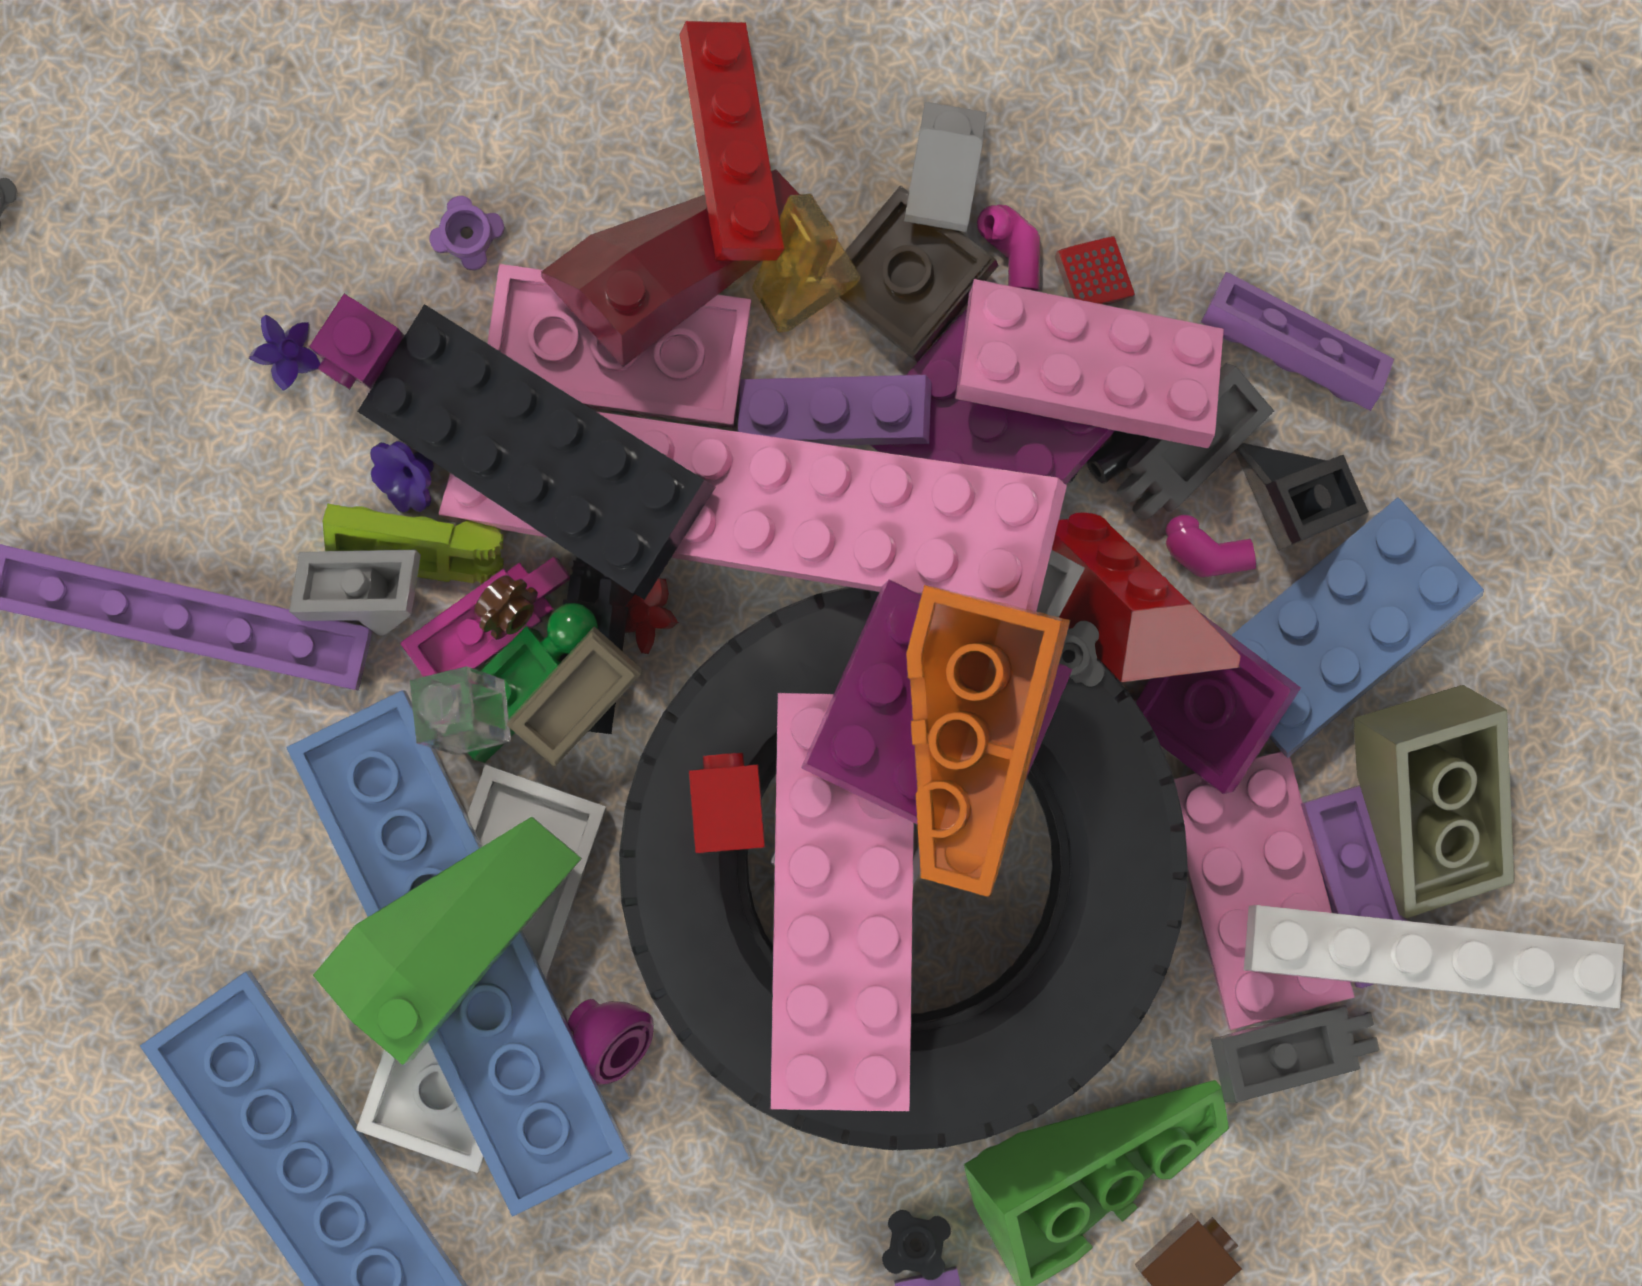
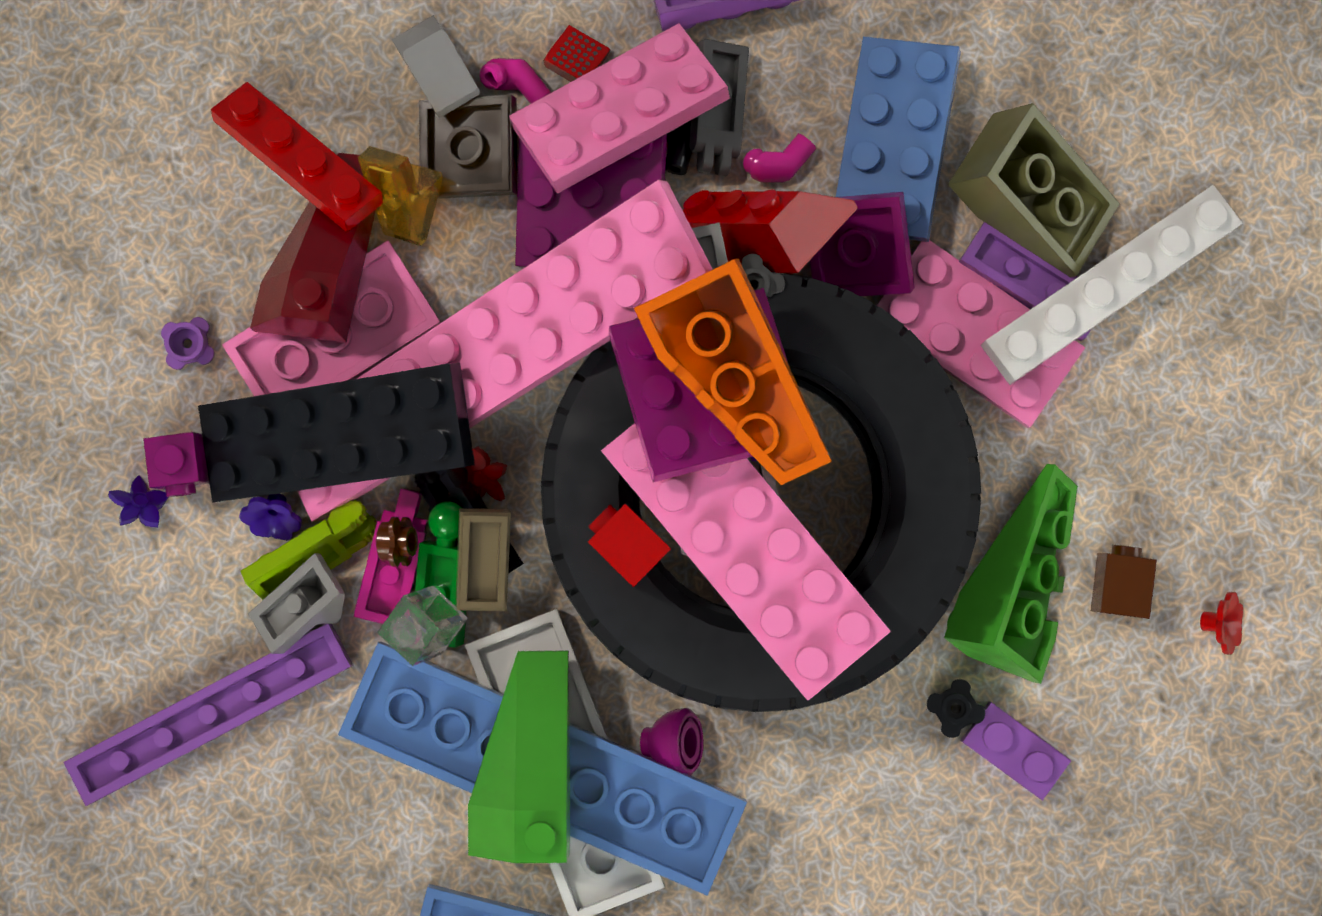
camera: 40 degrees left, 0 degrees up
(838, 409) = (496, 257): medium lavender plate -> none
(1290, 1053) = (1076, 411): dark grey hinge -> none
(1300, 492) = (804, 82): black slope -> none

